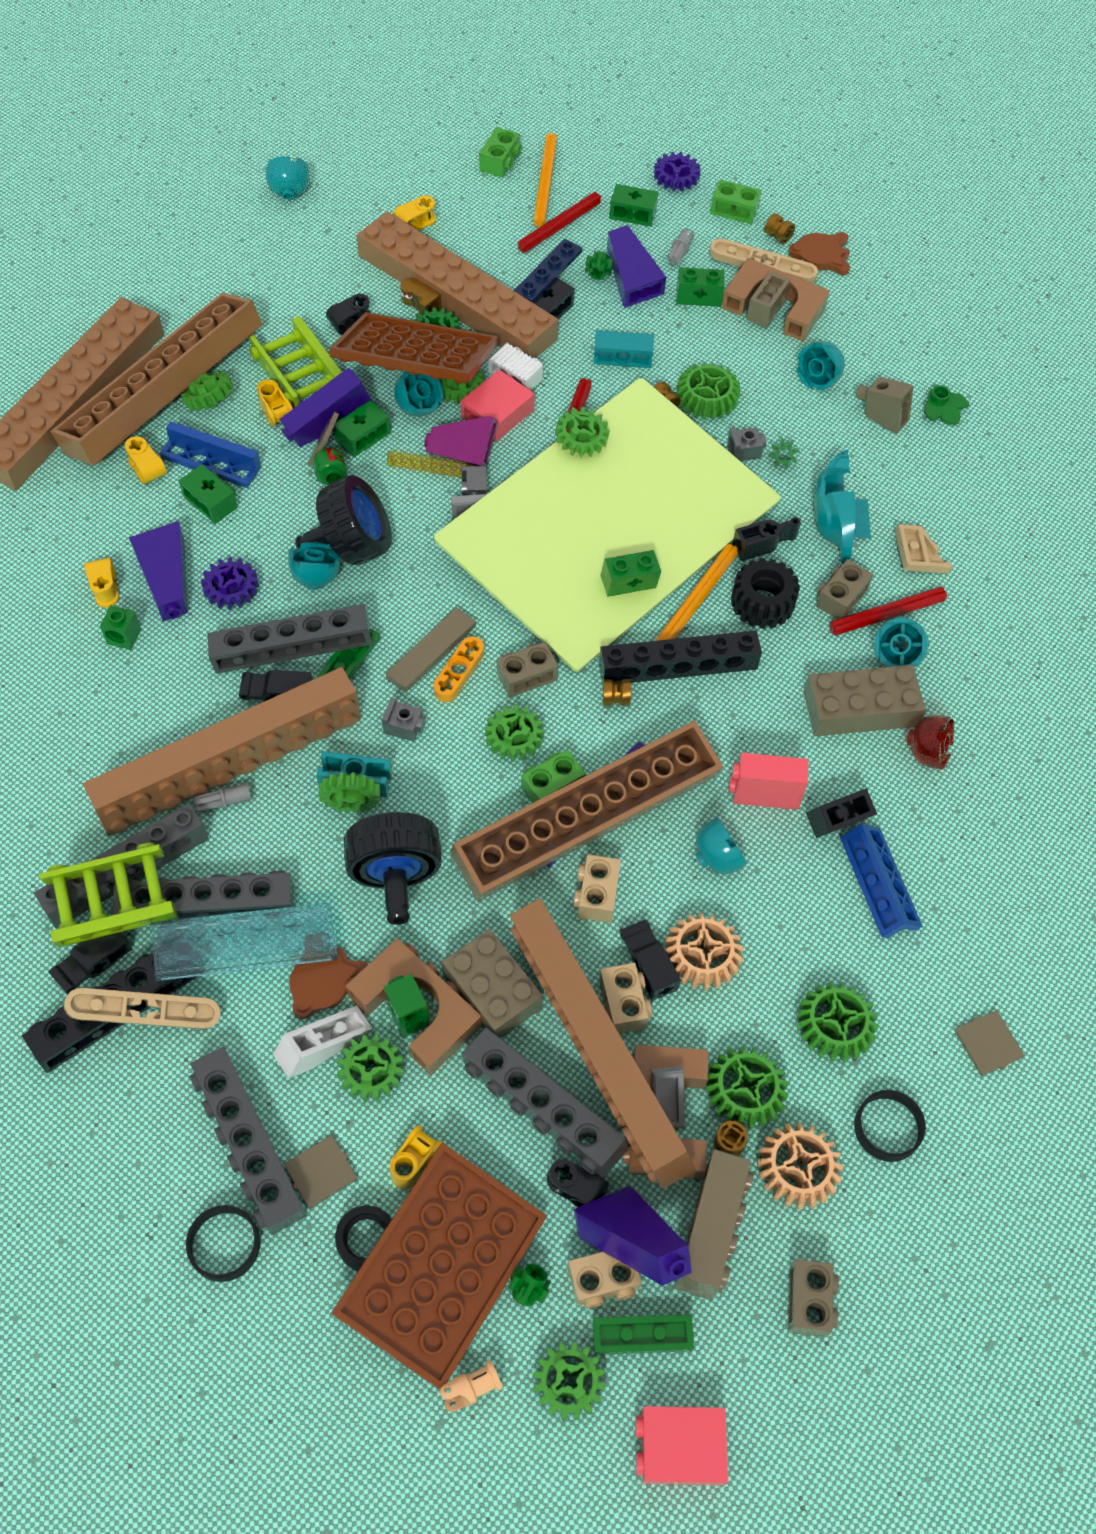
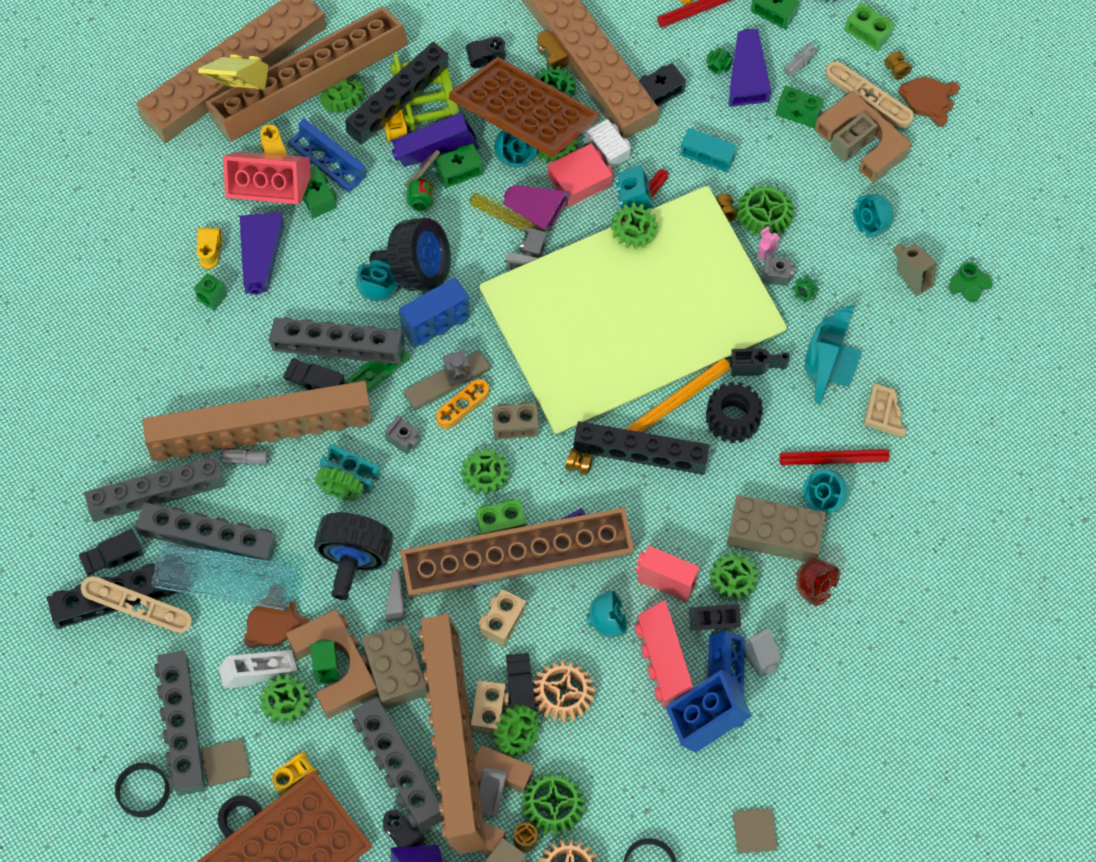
camera: 20 degrees right, 5 degrees up
(80, 386) = (237, 72): none -> light yellow slope
(128, 917) = (146, 532): lime fence -> none
(147, 490) = (266, 177): none -> coral slope
(230, 583) = (306, 277): dark purple gear -> none
(268, 369) = (396, 93): none -> black brick
(393, 578) = (434, 312): none -> blue brick
(440, 629) = (456, 367): none -> flat silver brick
(466, 912) = (395, 607): none -> light grey slope
(548, 270) = (669, 57): dark blue bracket -> none
(561, 397) = (634, 188): none -> teal brick
(630, 573) = (627, 364): green brick -> none
(671, 1013) = (517, 730): none -> bright green gear
(726, 419) = (768, 244): none -> bright pink plate
(805, 872) = (663, 653): none -> coral slope
(837, 766) = (723, 573): none -> bright green gear
(844, 589) = (806, 432): dark tan brick -> none
(857, 1015) = (651, 778): bright green gear -> none
(886, 918) = (708, 711): none -> blue brick
(913, 836) = (763, 653): none -> light grey slope

